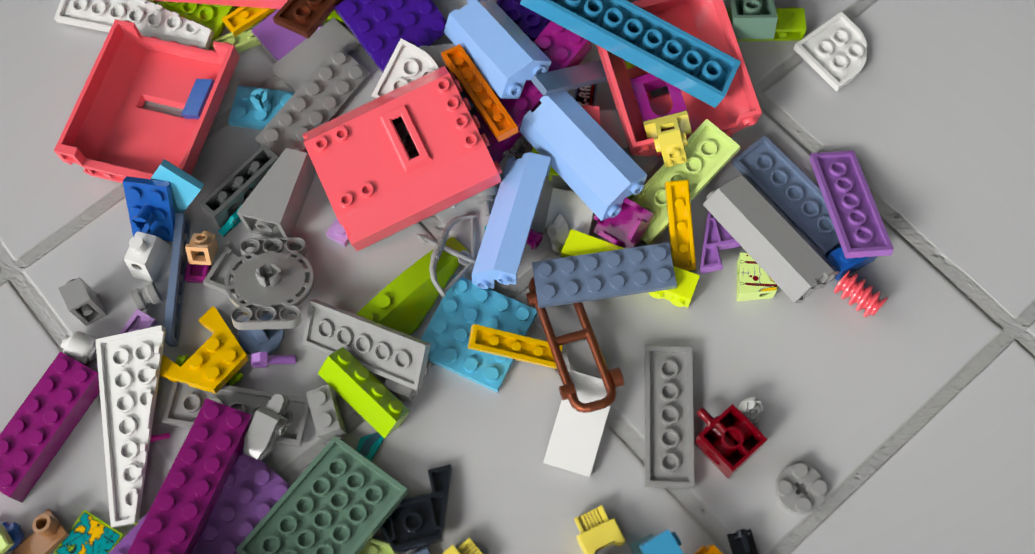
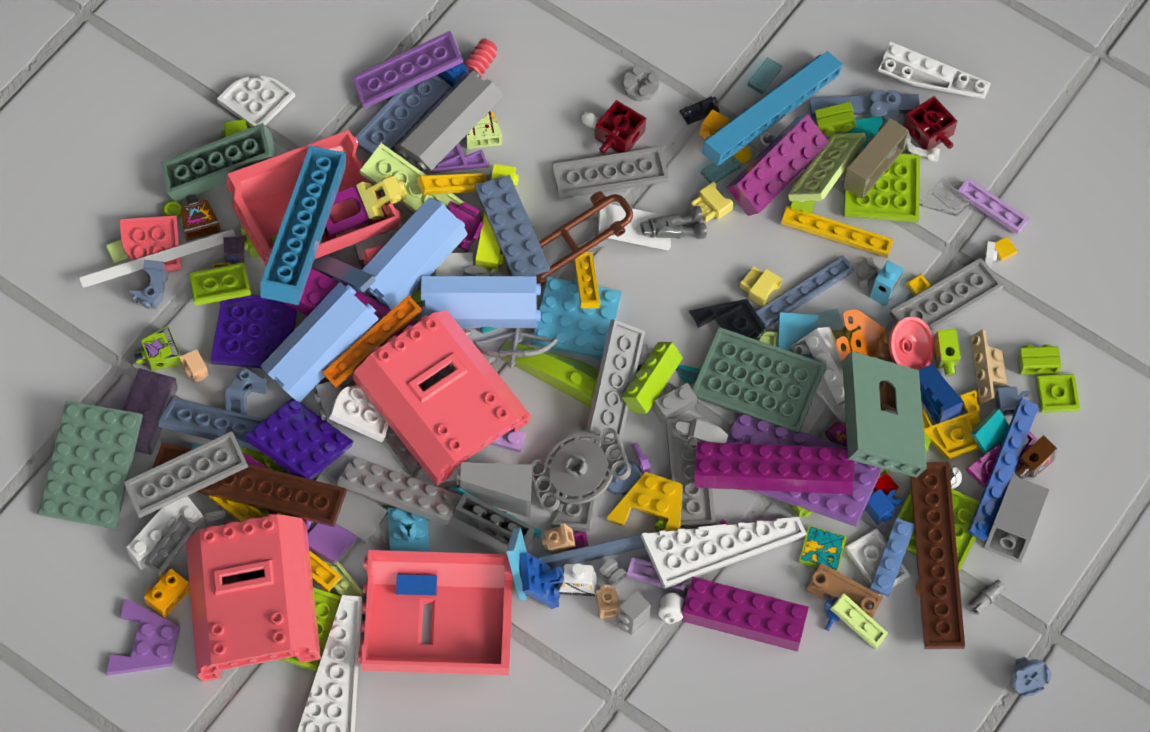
camera: 110 degrees left, 5 degrees down
(108, 287) = (607, 608): none -> light nougat brick
(568, 466) = (670, 225): none -> dark grey piece

